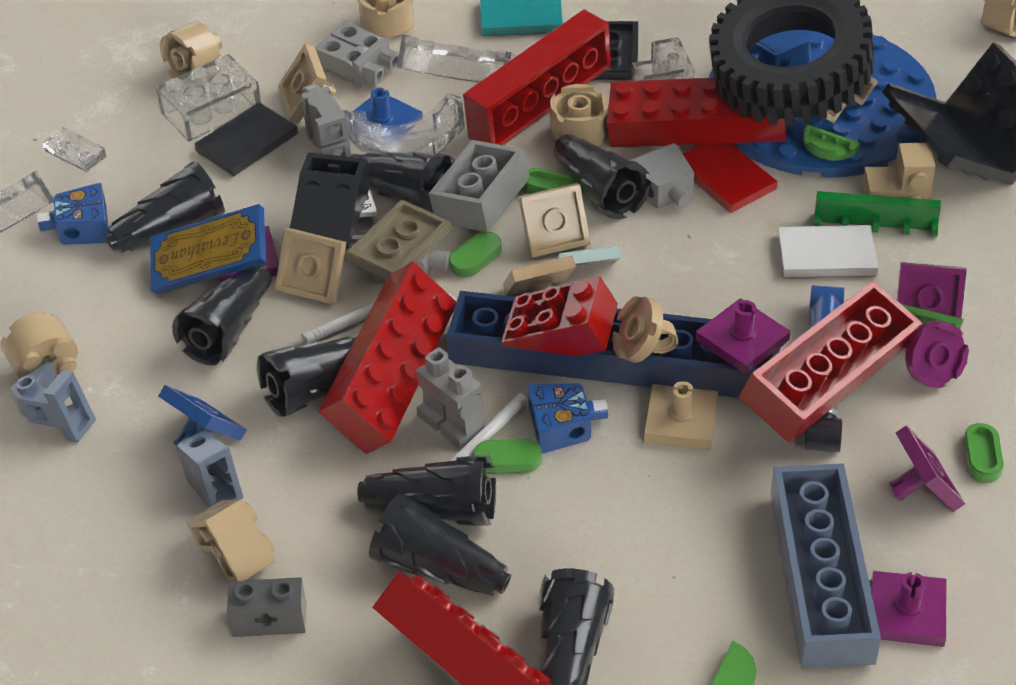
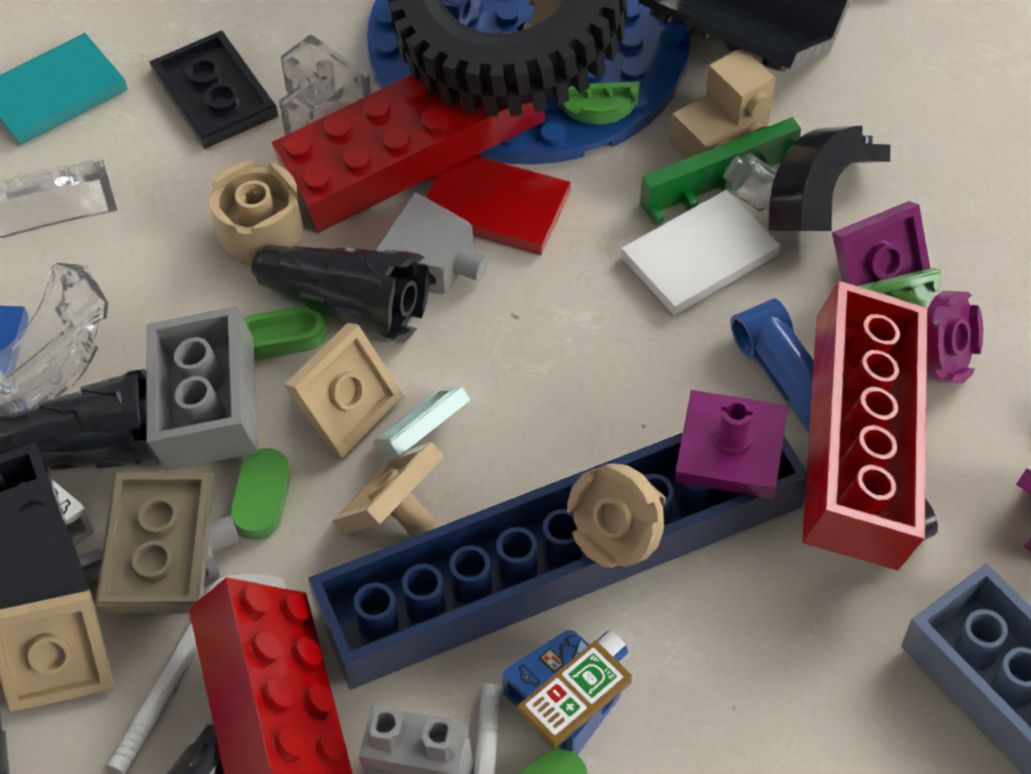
camera: 35 degrees left, 10 degrees up
(524, 86) = (164, 187): red brick -> none
(555, 410) = (574, 694): none -> tile
(563, 319) = (490, 553): red slope -> none
(681, 416) = (710, 595): tan tile -> none
(889, 227) = (750, 180): none -> clear brick
(919, 231) = (809, 173): none -> black arch

